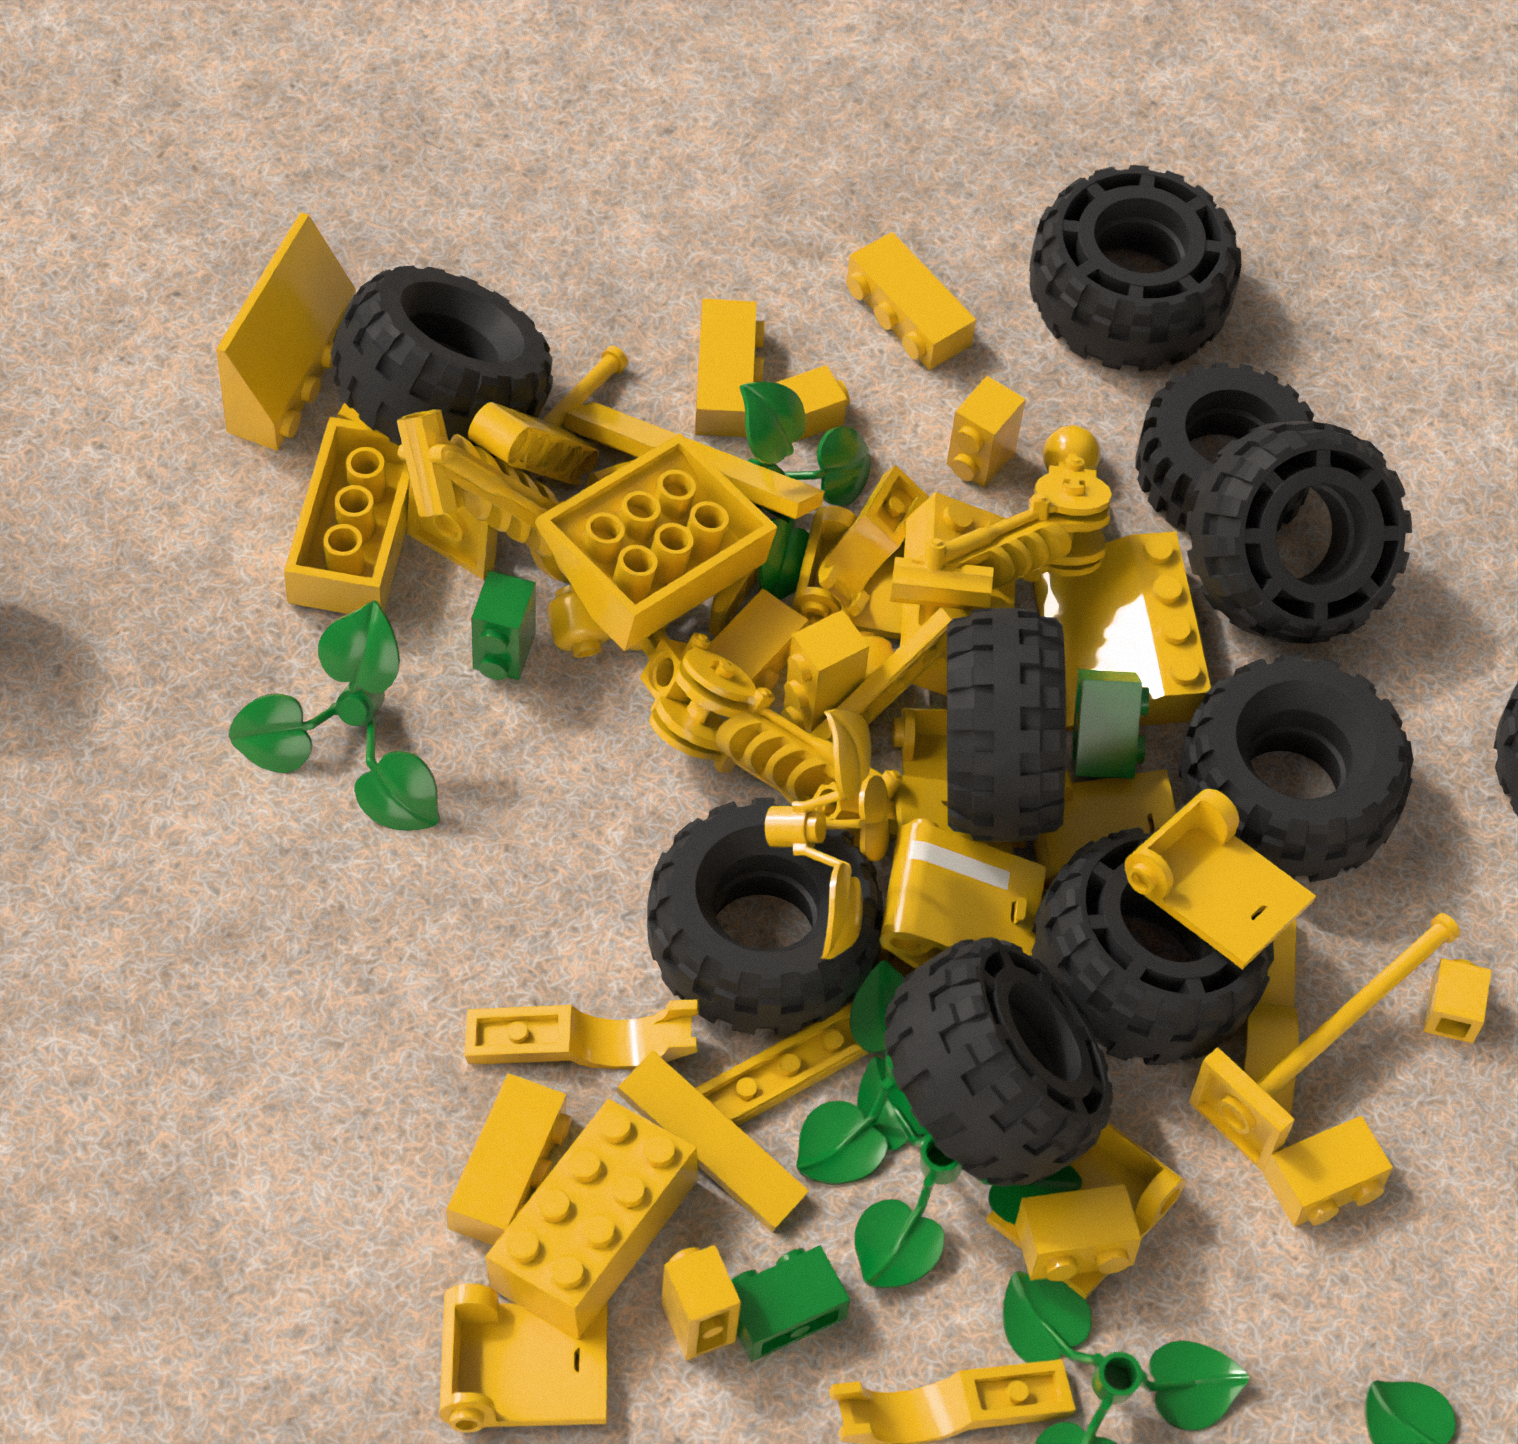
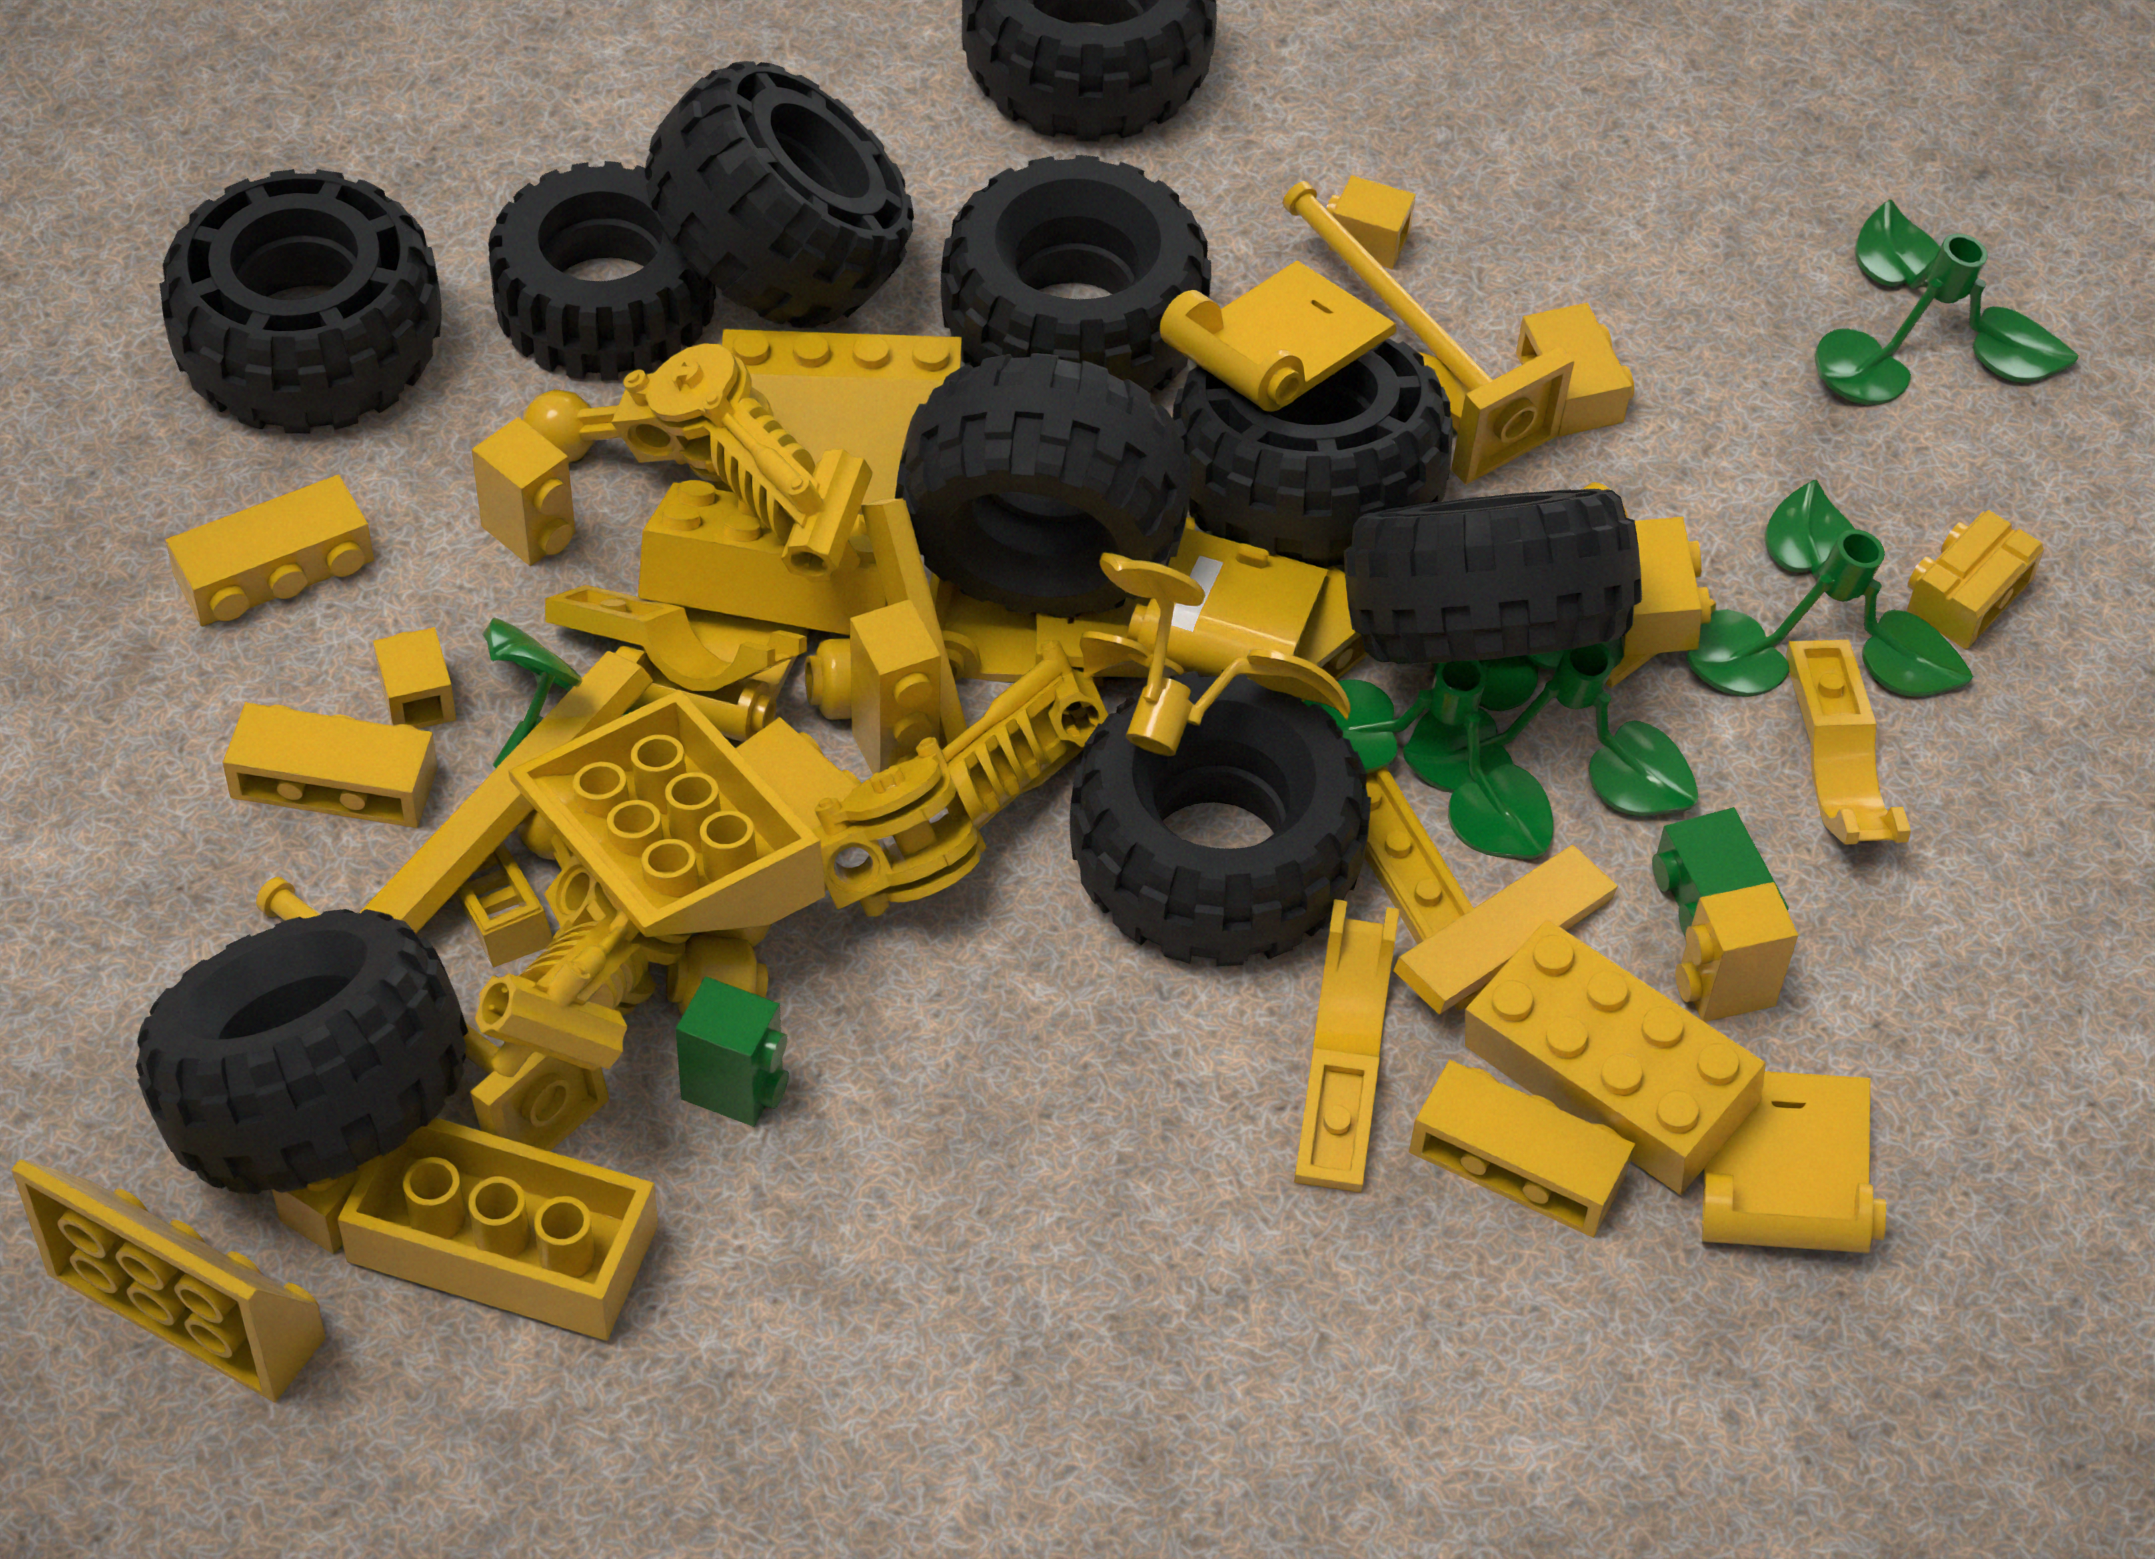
camera: 80 degrees left, 5 degrees down
(366, 654) = (813, 1172): green plant -> none
(532, 444) = (497, 938): yellow beam -> none

